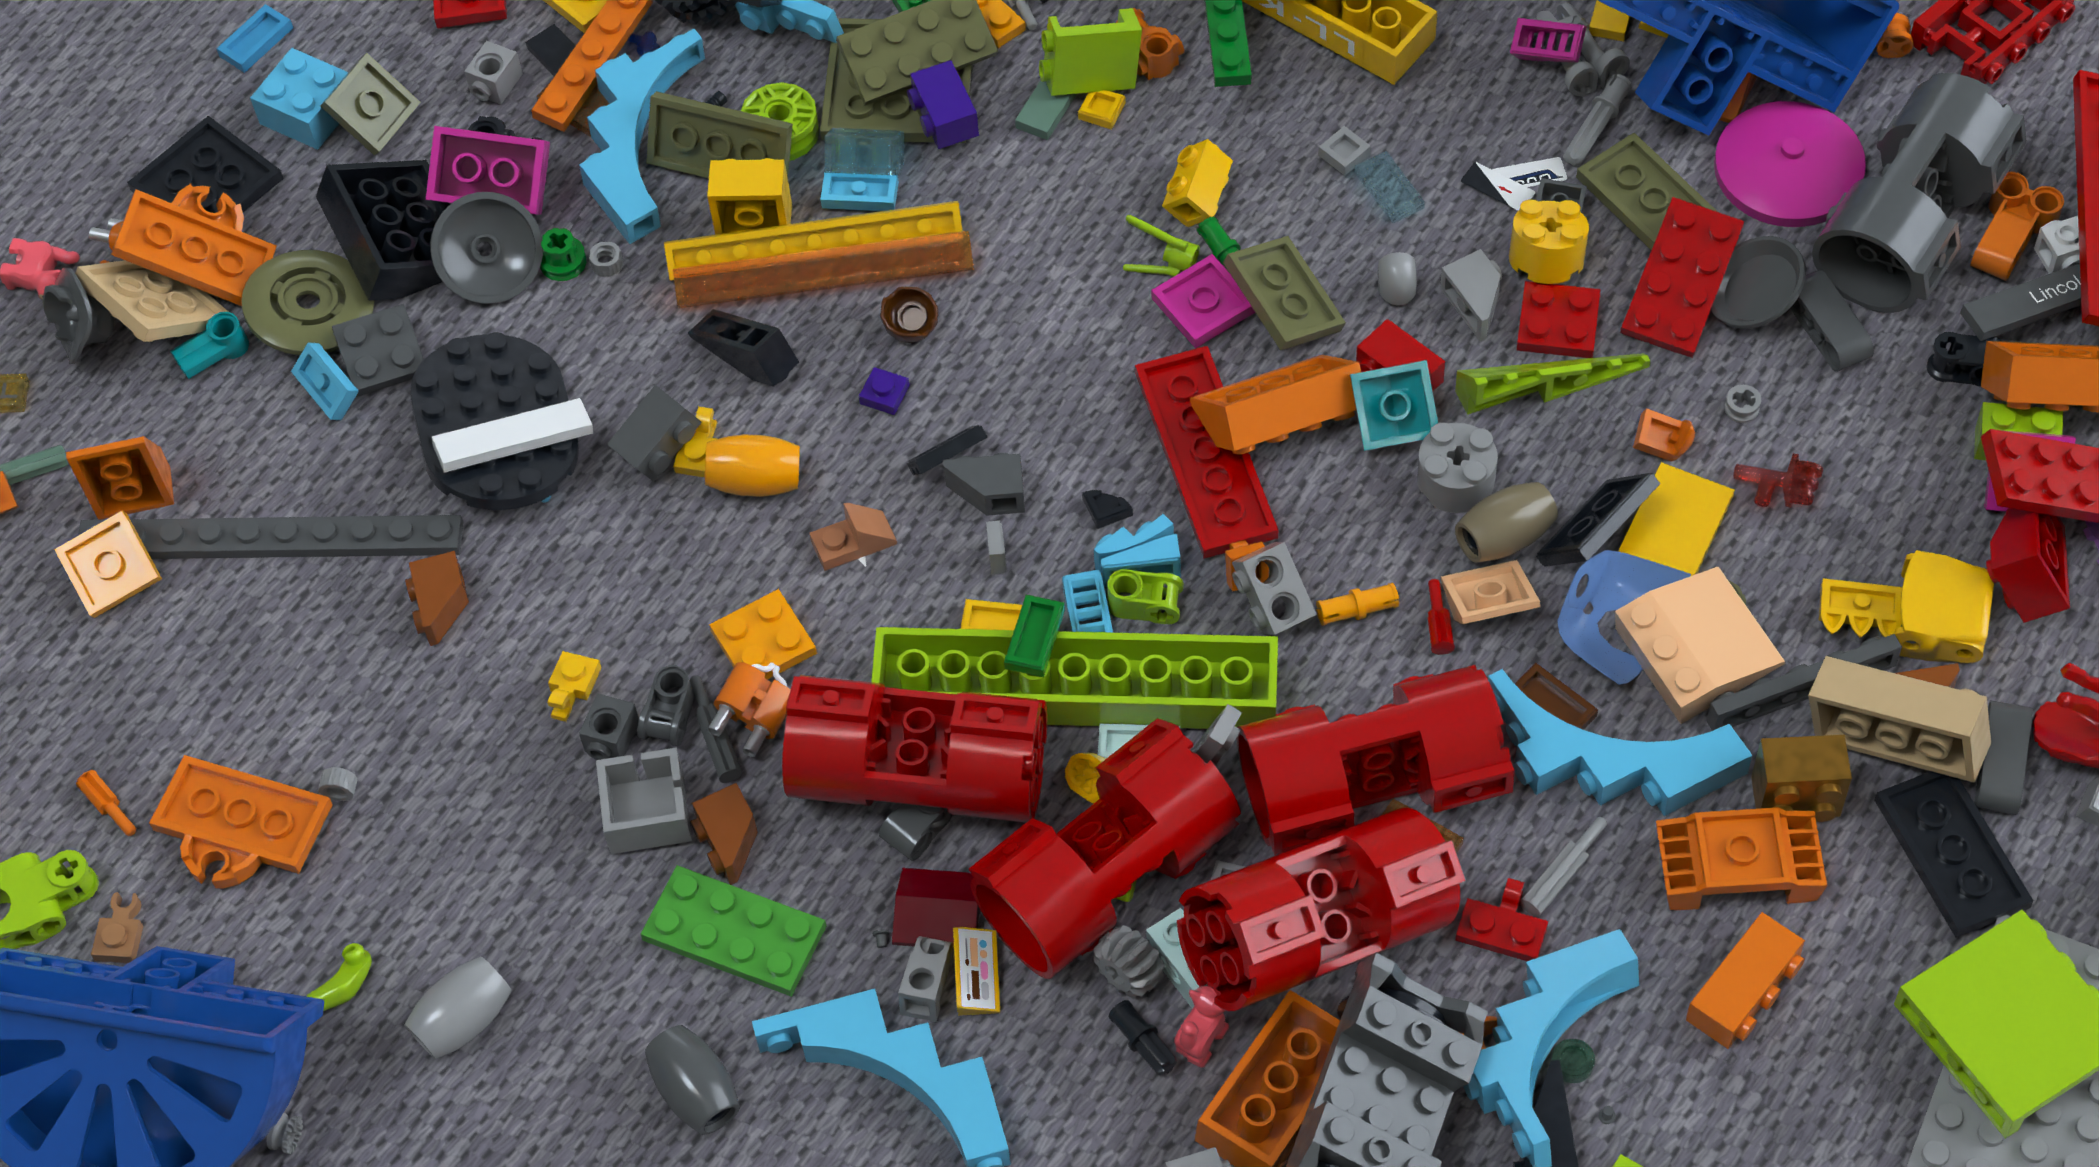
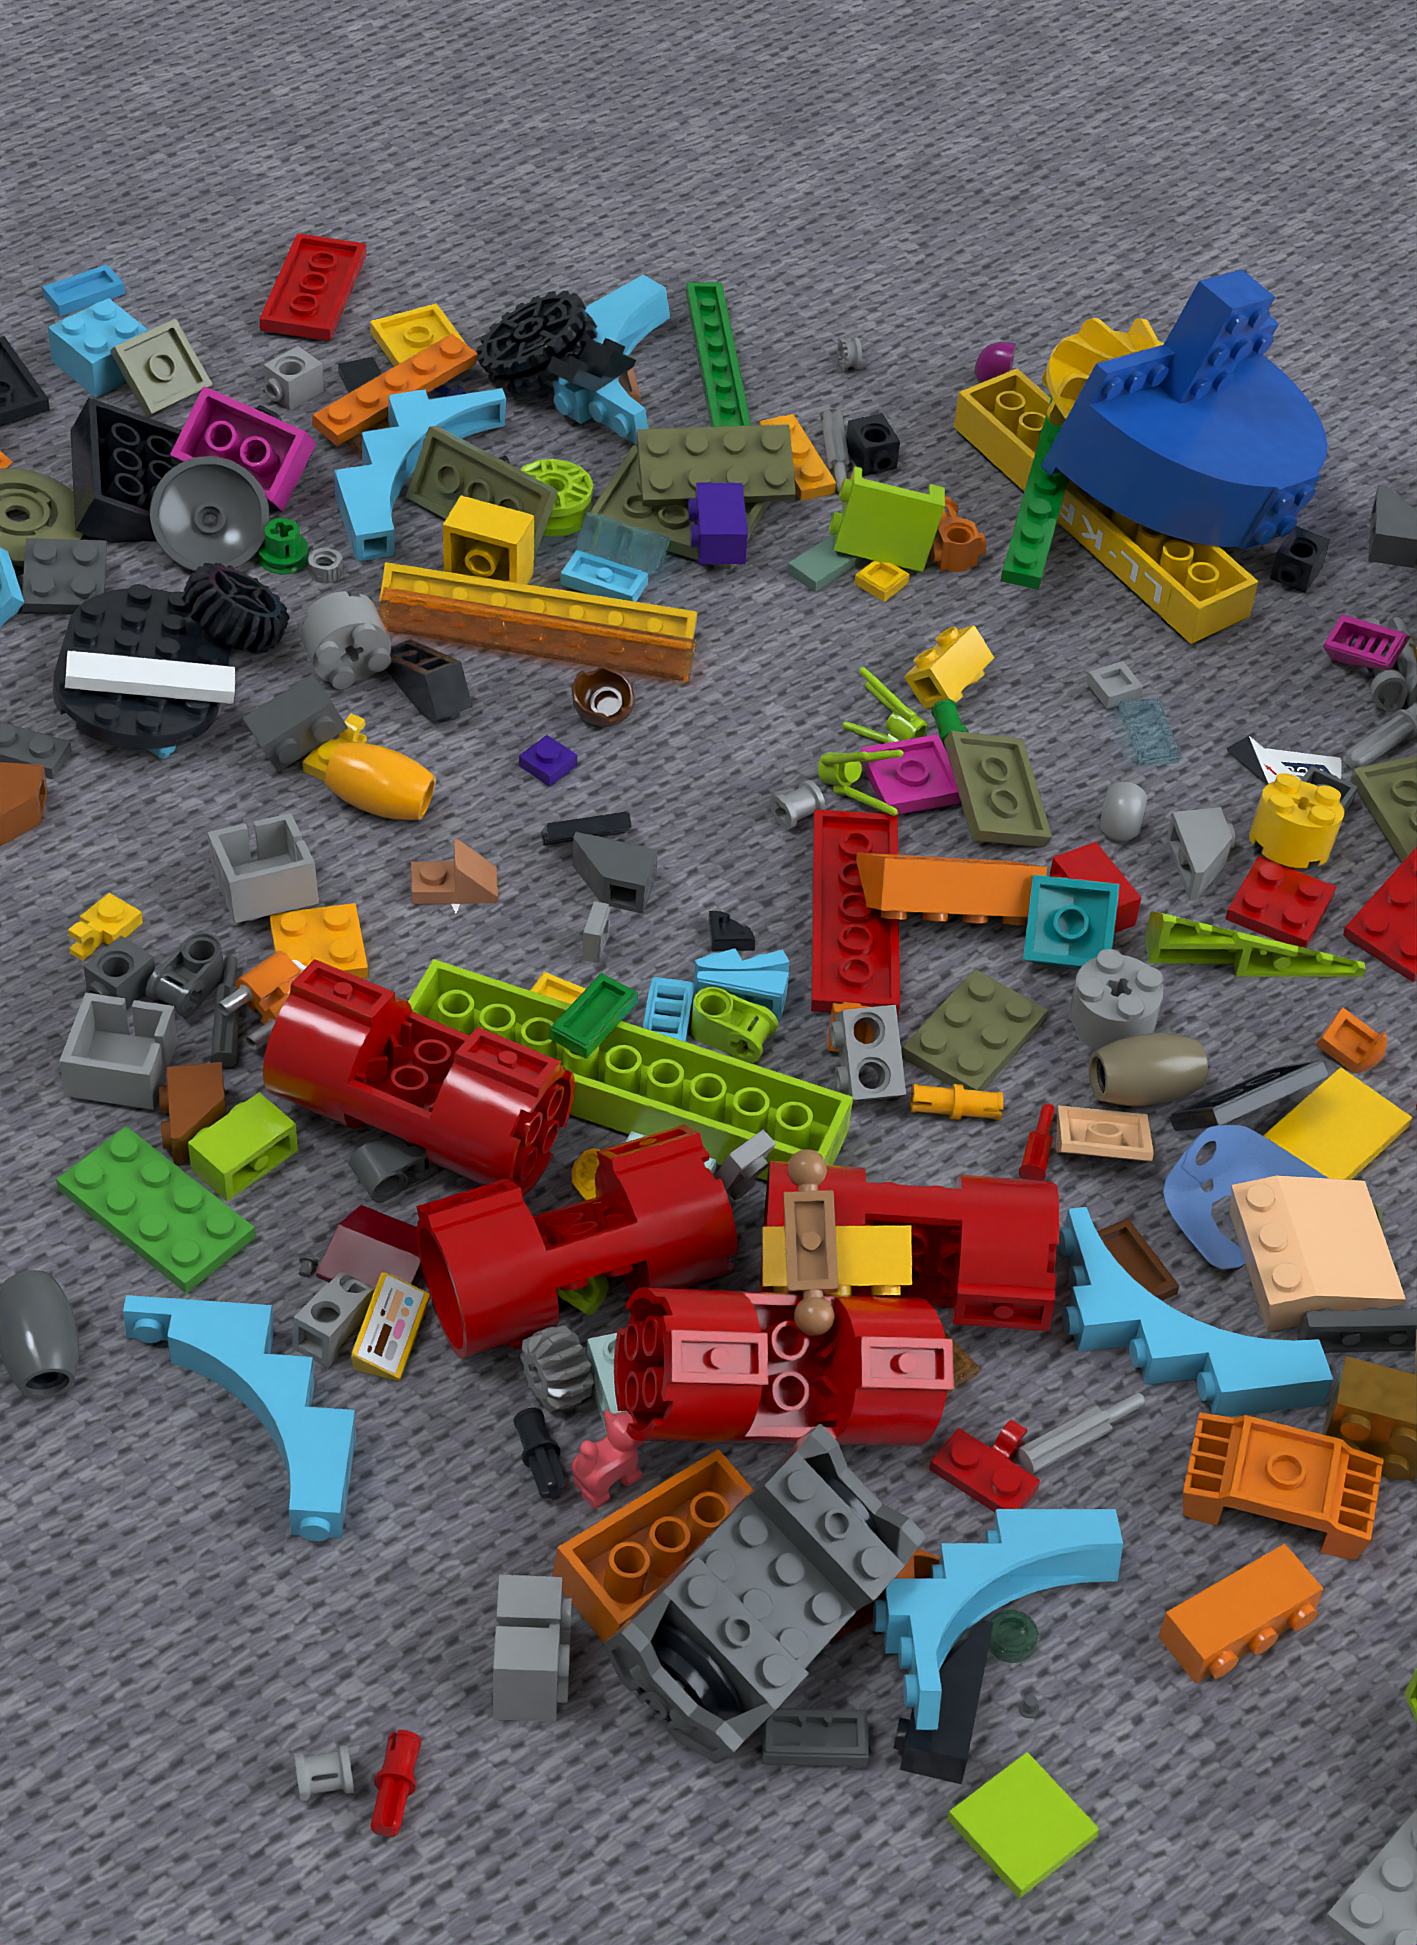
camera: 10 degrees right, 10 degrees down
(551, 335) = (235, 607): none -> black gear
(662, 334) = (345, 639): none -> light grey brick
(701, 593) = (276, 882): none -> light grey piece
(783, 850) = (242, 1146): none -> lime brick
(1117, 363) = (797, 804): none -> light grey bush
(1145, 316) = (845, 768): none -> lime plant
(1311, 799) = (810, 1242): none -> medium nougat plate
(1330, 799) = (864, 1258): none -> yellow brick
(1348, 532) = (974, 1033): none -> olive plate

